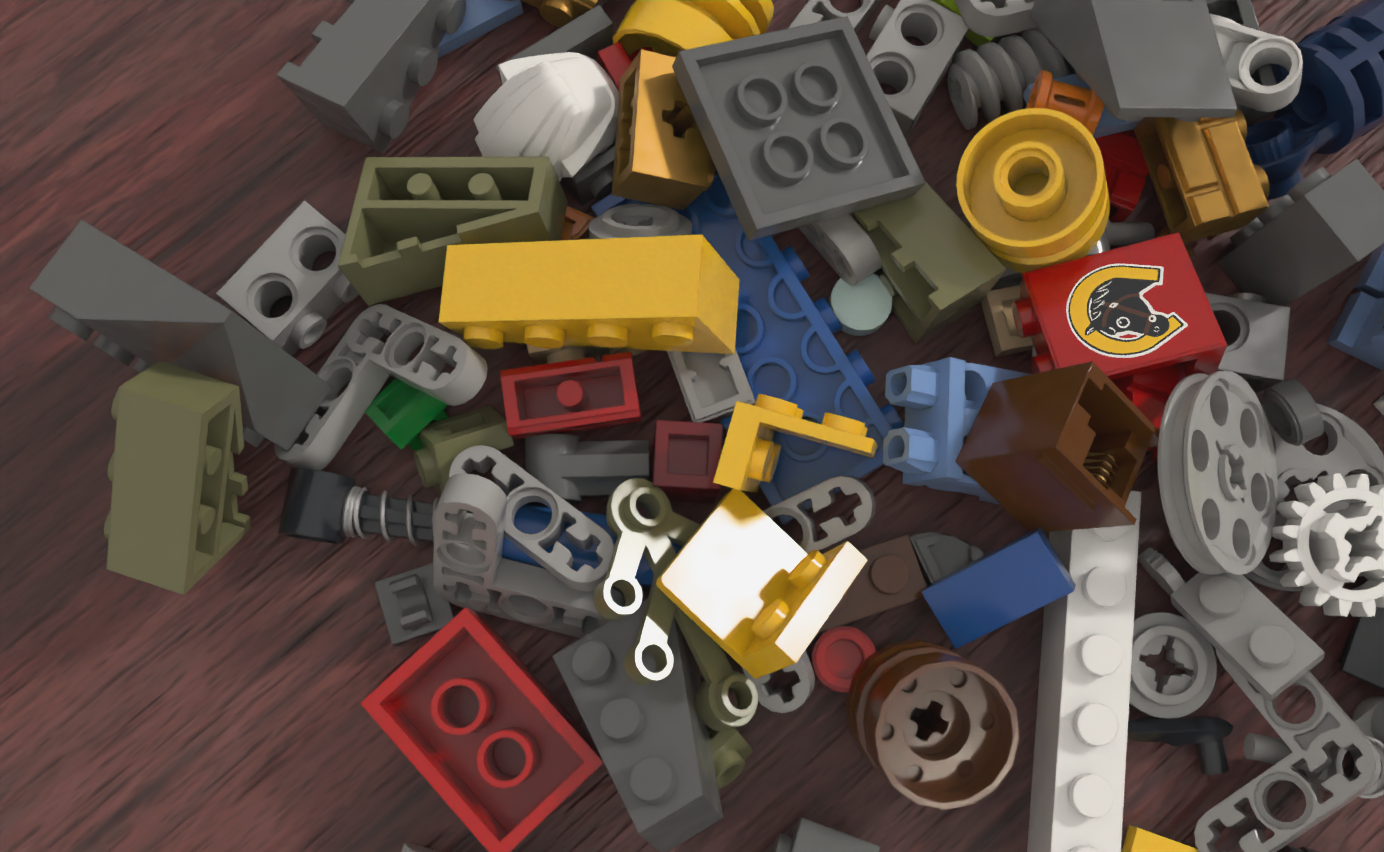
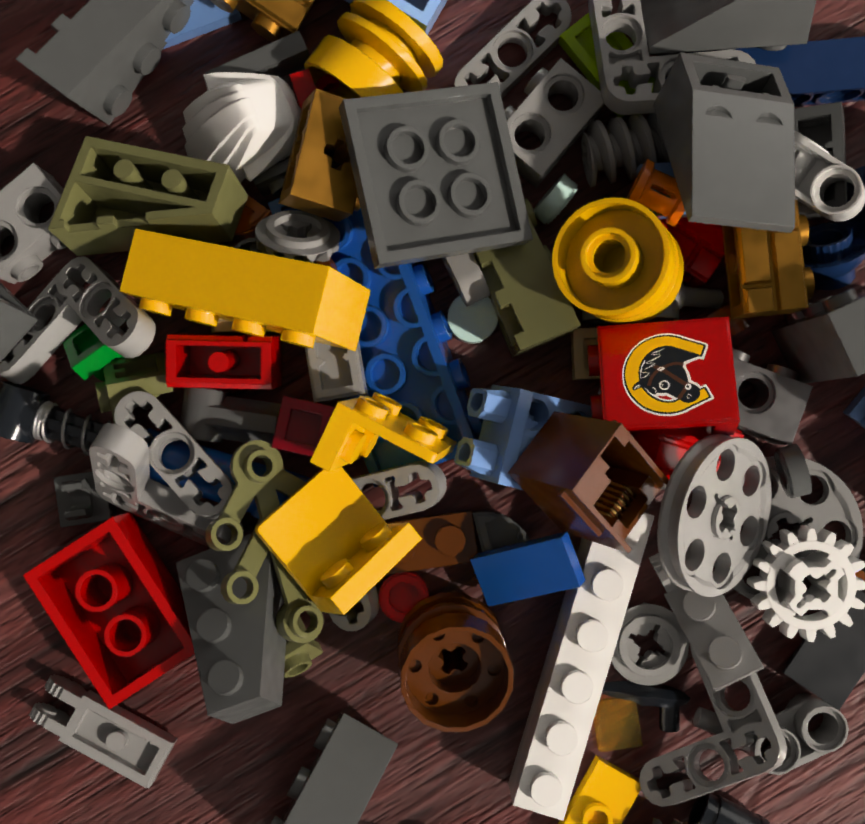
camera: 10 degrees right, 10 degrees up
(934, 147) = (555, 199): none -> light aqua tile
(1150, 780) = (617, 725): none -> clear yellow piece

